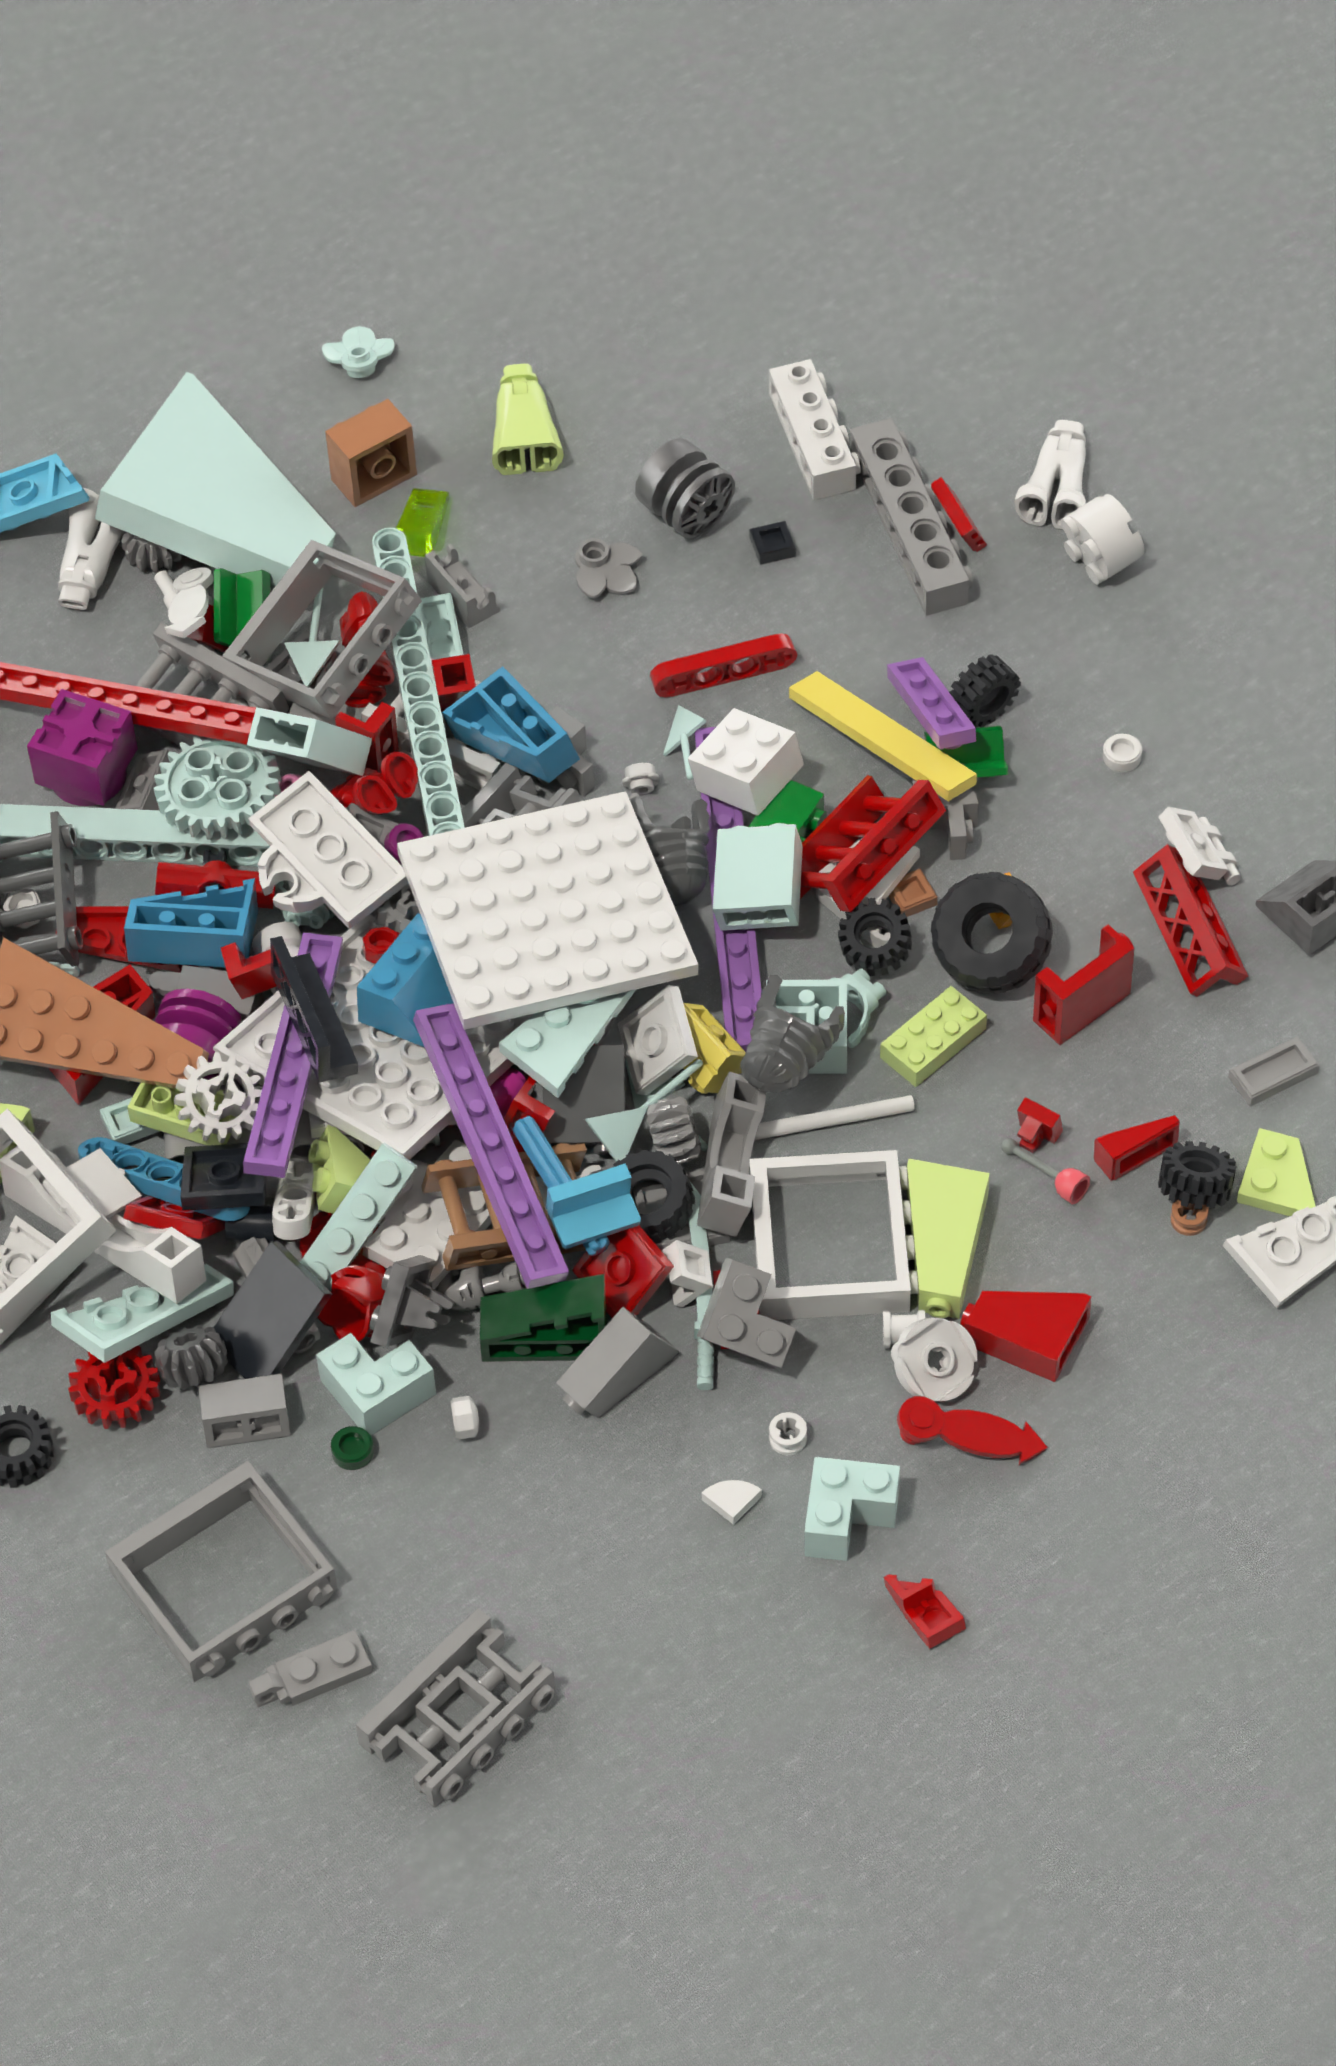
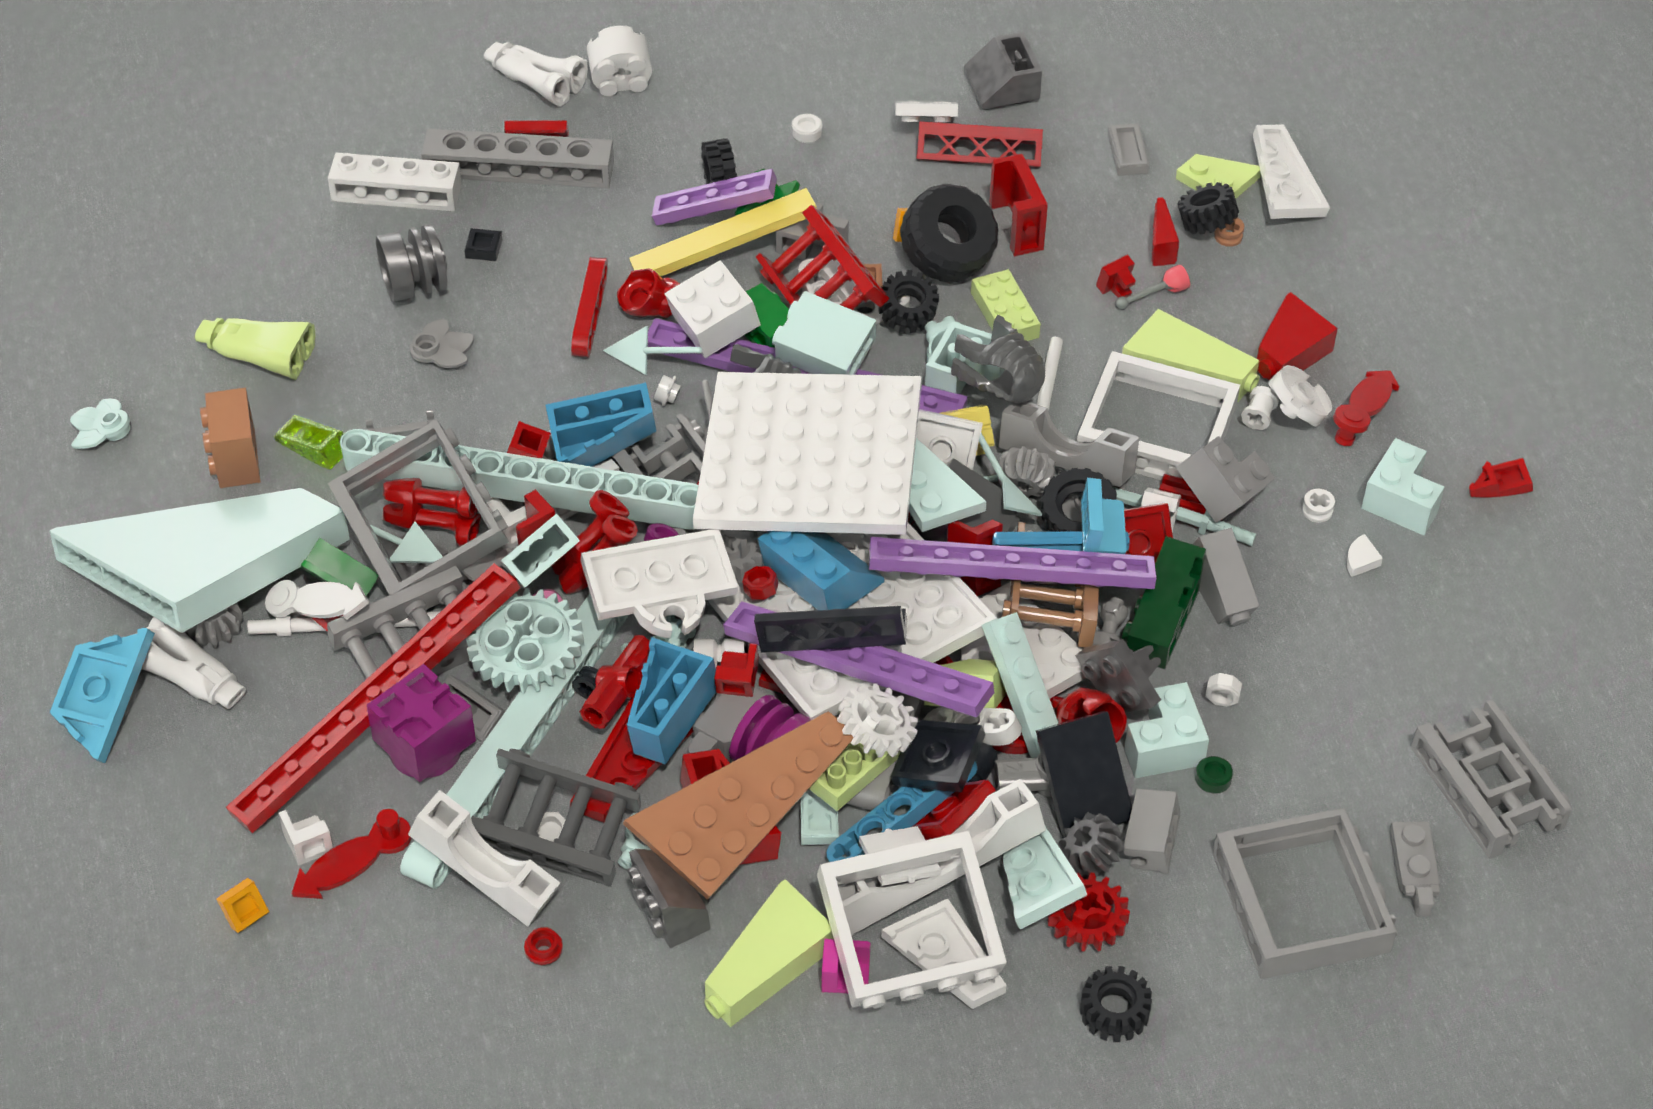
camera: 70 degrees left, 5 degrees down
(768, 701) = (645, 294): none -> red hair

